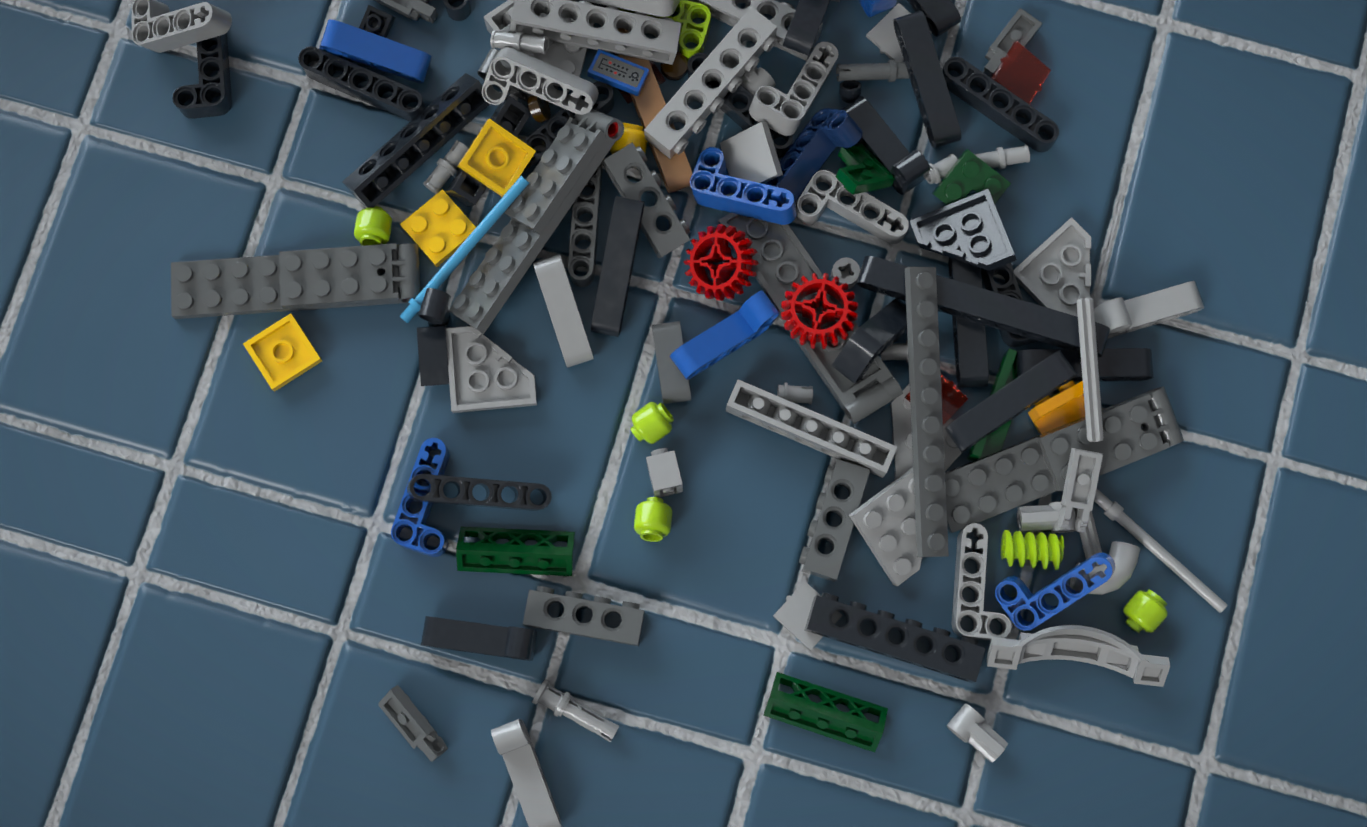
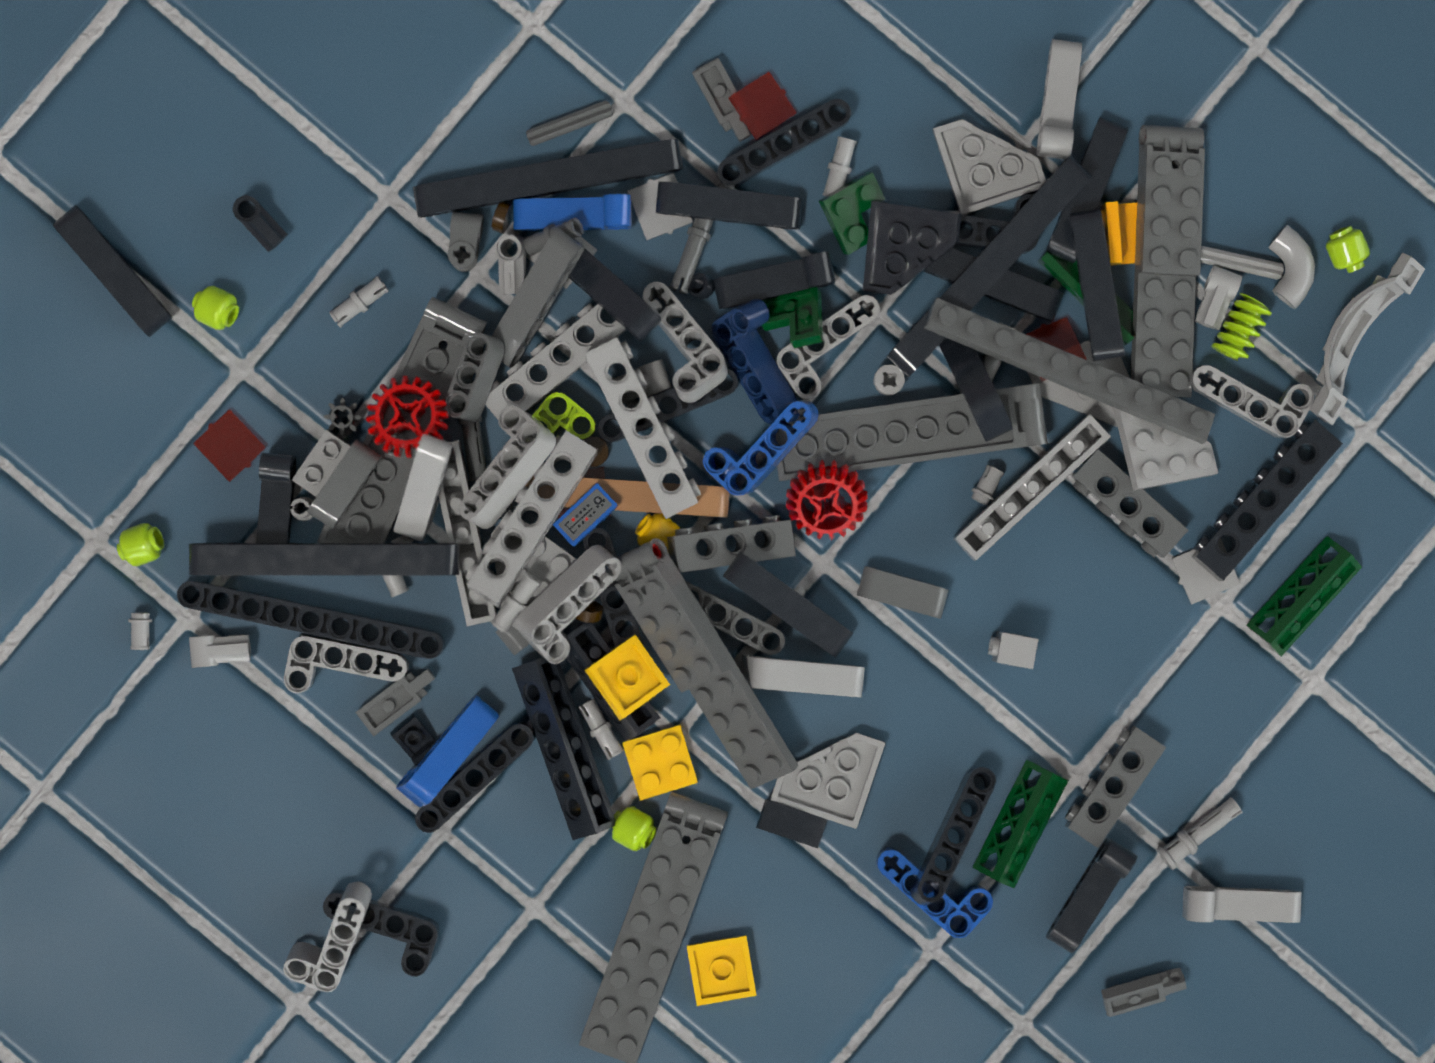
camera: 65 degrees left, 10 degrees up
(435, 307) = (751, 802): black piece -> none
(466, 246) = (733, 817): dark azure bar -> none
(651, 422) = (954, 638): lime head -> none
(653, 519) = (1050, 679): lime head -> none
(726, 336) = (905, 530): blue beam -> none
(752, 155) = (732, 420): light grey tile -> none
(829, 313) = (936, 411): red gear -> none
(940, 169) = (823, 234): light grey pin -> none
(971, 728) = (1381, 466): light grey piece -> none
(1059, 587) = (1291, 323): blue beam -> none
(1080, 487) = (1207, 257): light grey hinge -> none
(1090, 369) = (1103, 196): light grey axle -> none
(1115, 512) = (1240, 229): light grey bar -> none

